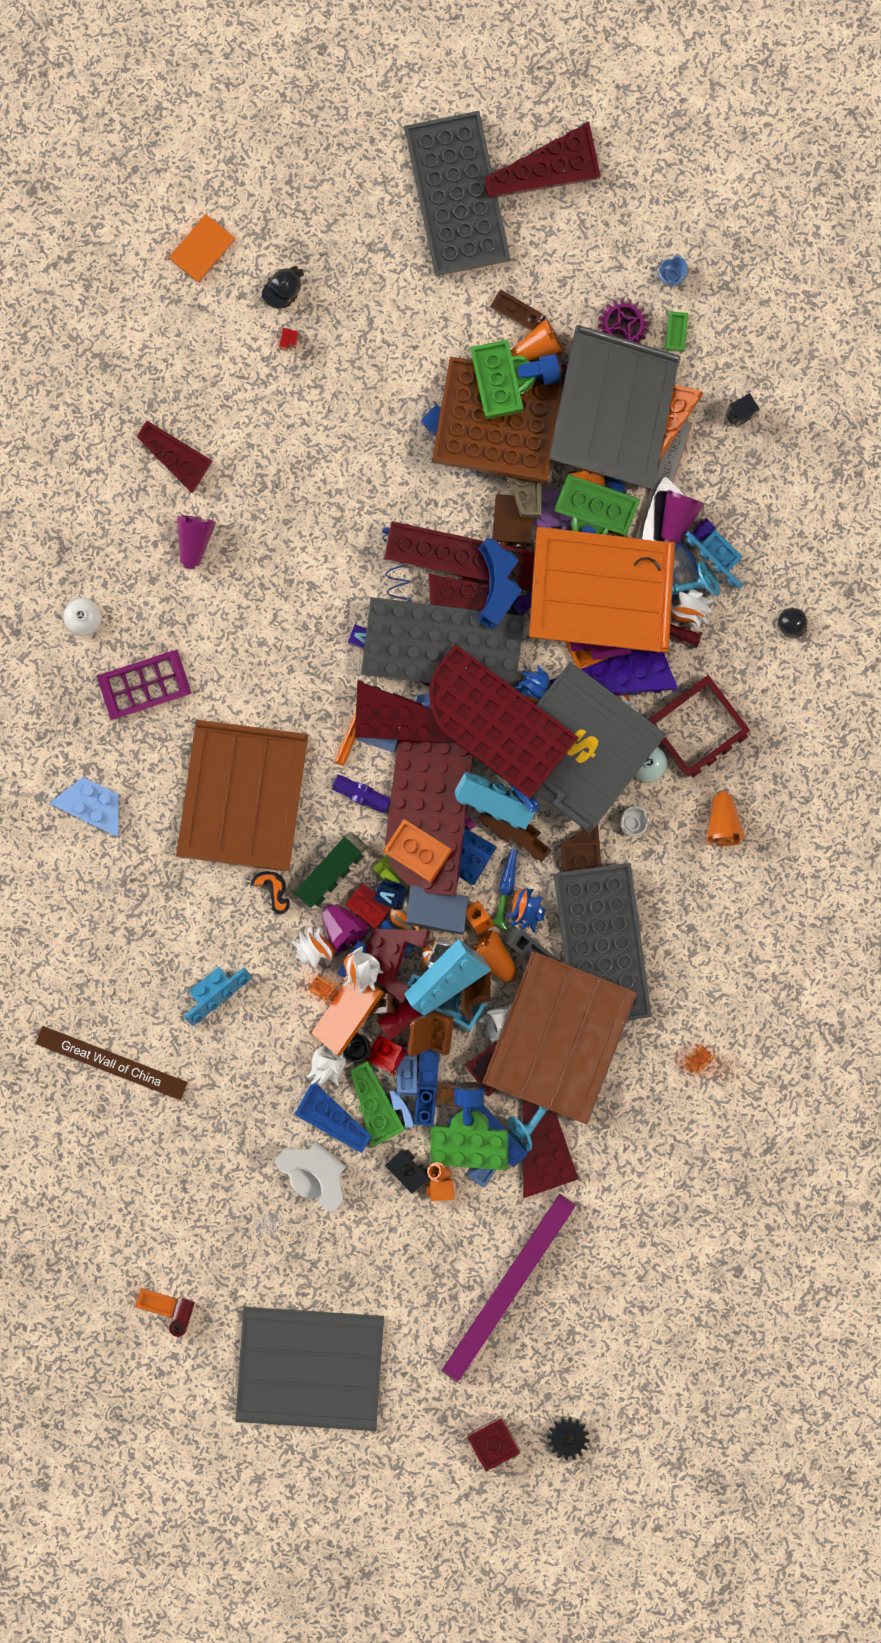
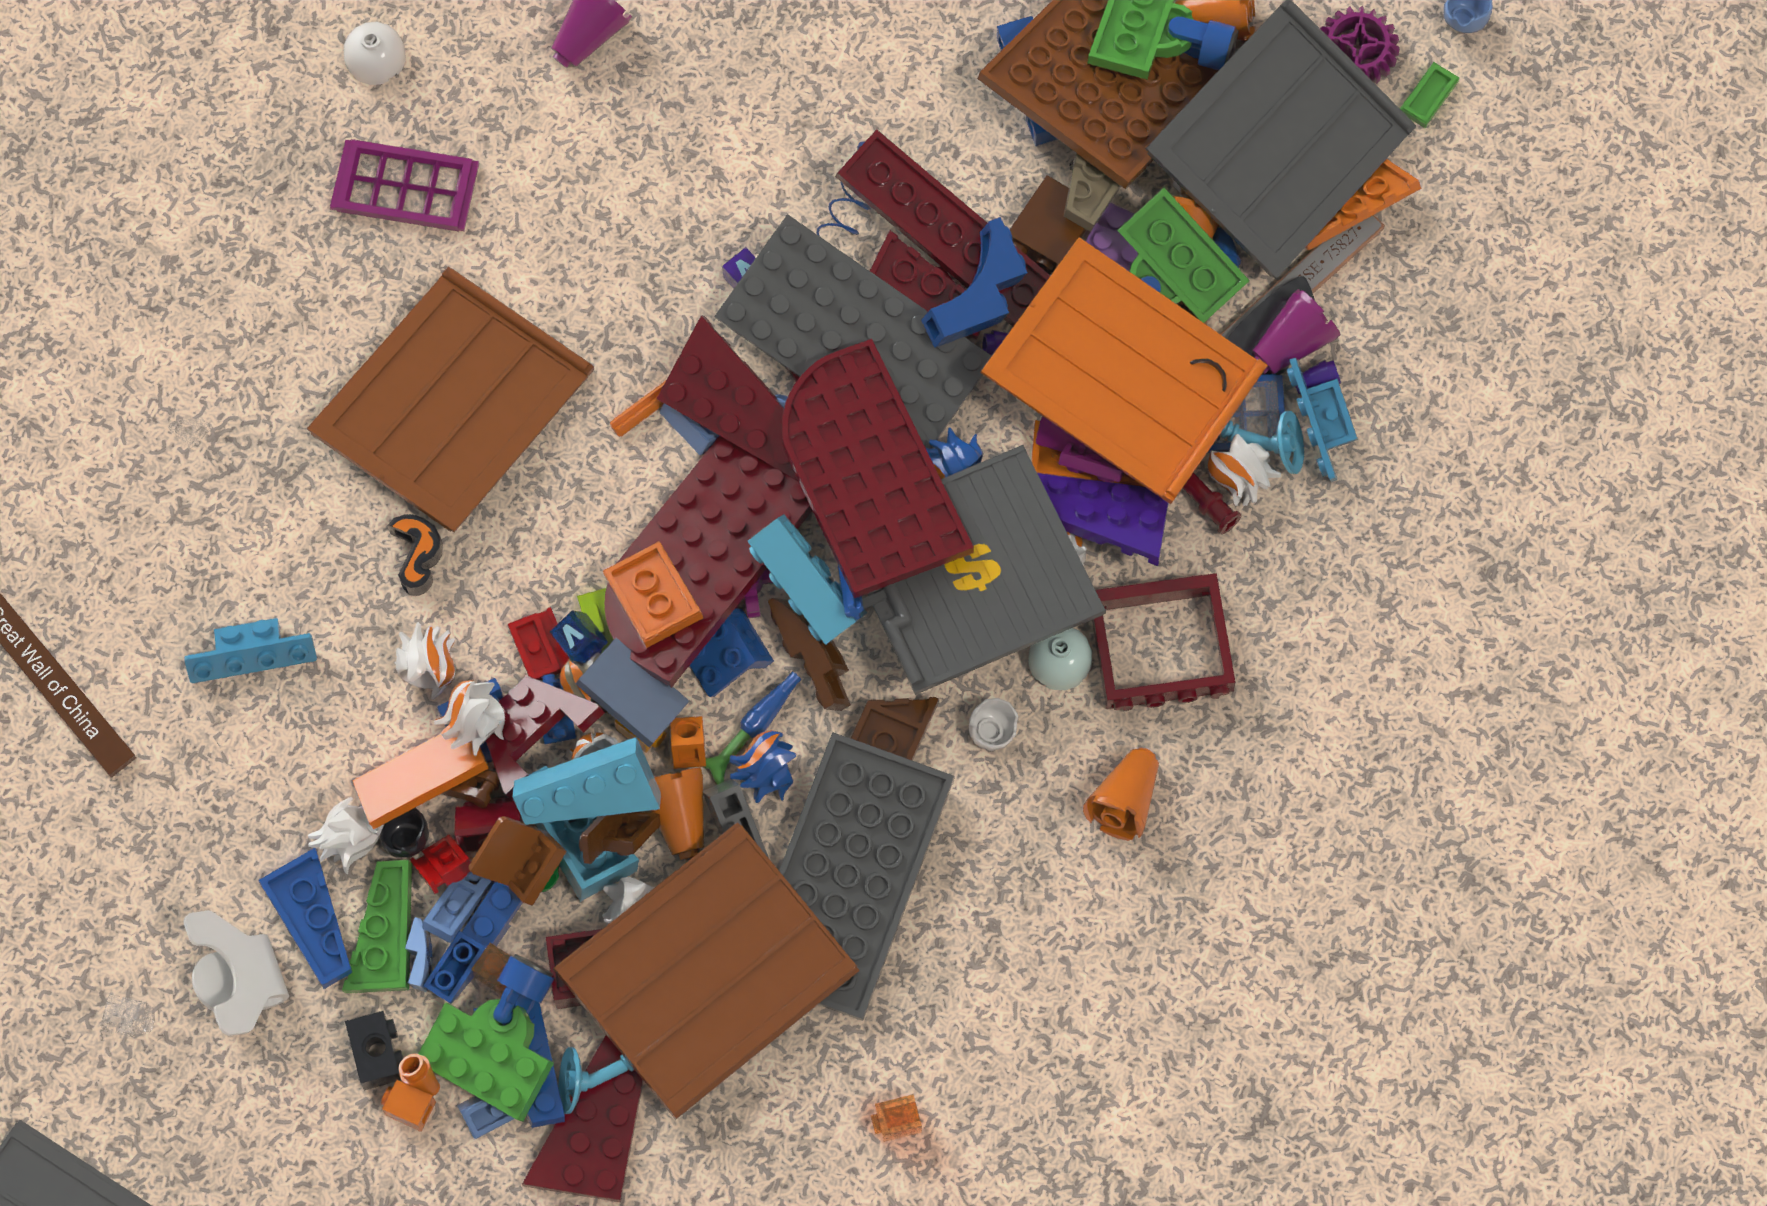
camera: 30 degrees right, 15 degrees down
(92, 804) = (234, 306): light blue wing -> none
(323, 988) = (406, 724): clear orange brick -> none
(331, 869) = (516, 564): dark green wedge -> none
(343, 927) = (485, 652): magenta cone -> none
(361, 794) = (620, 484): dark purple piece -> none
(742, 410) = (1465, 239): black brick -> none
(792, 623) = (1382, 571): black hair -> none

